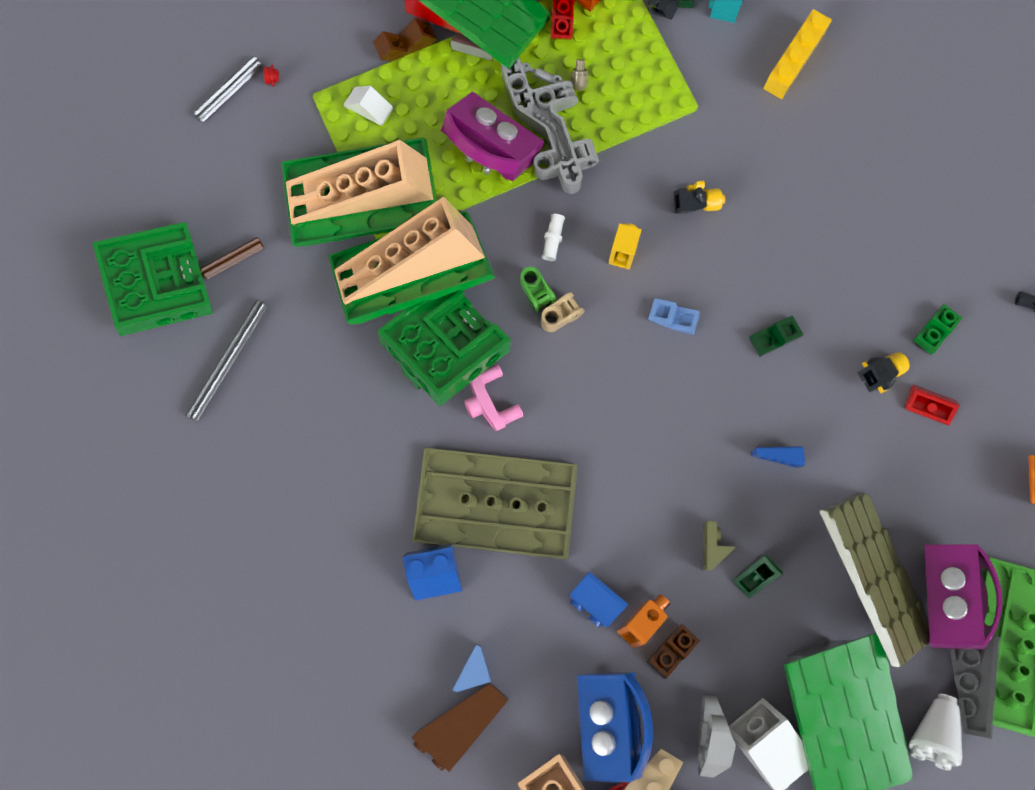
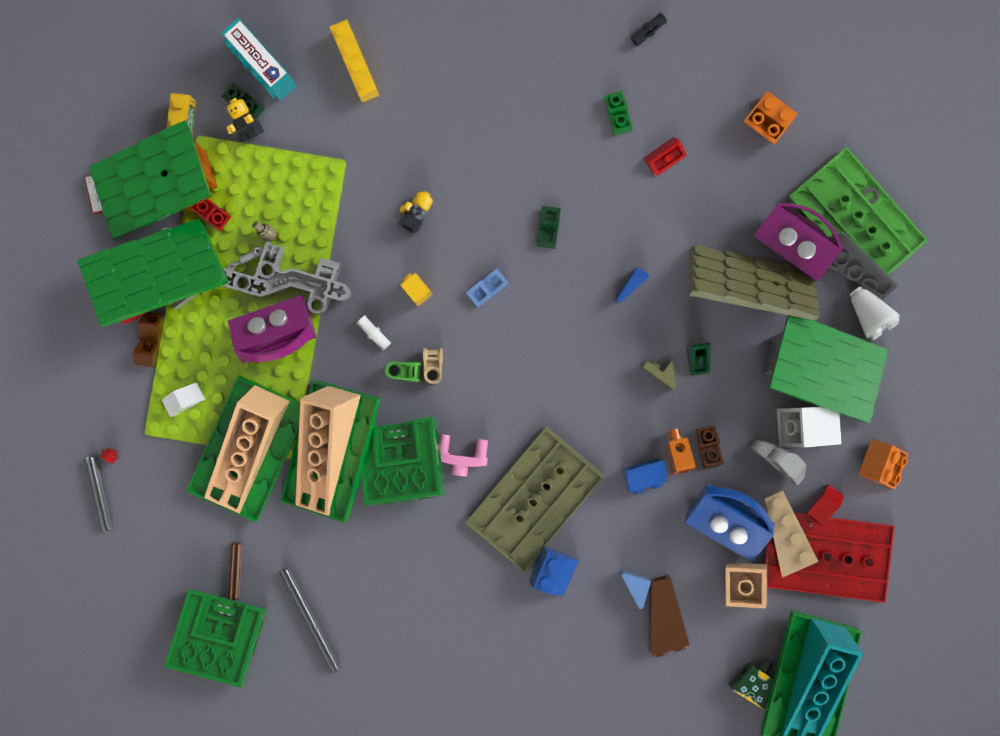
camera: 60 degrees left, 10 degrees up
(882, 372) = (622, 174): black piece -> none

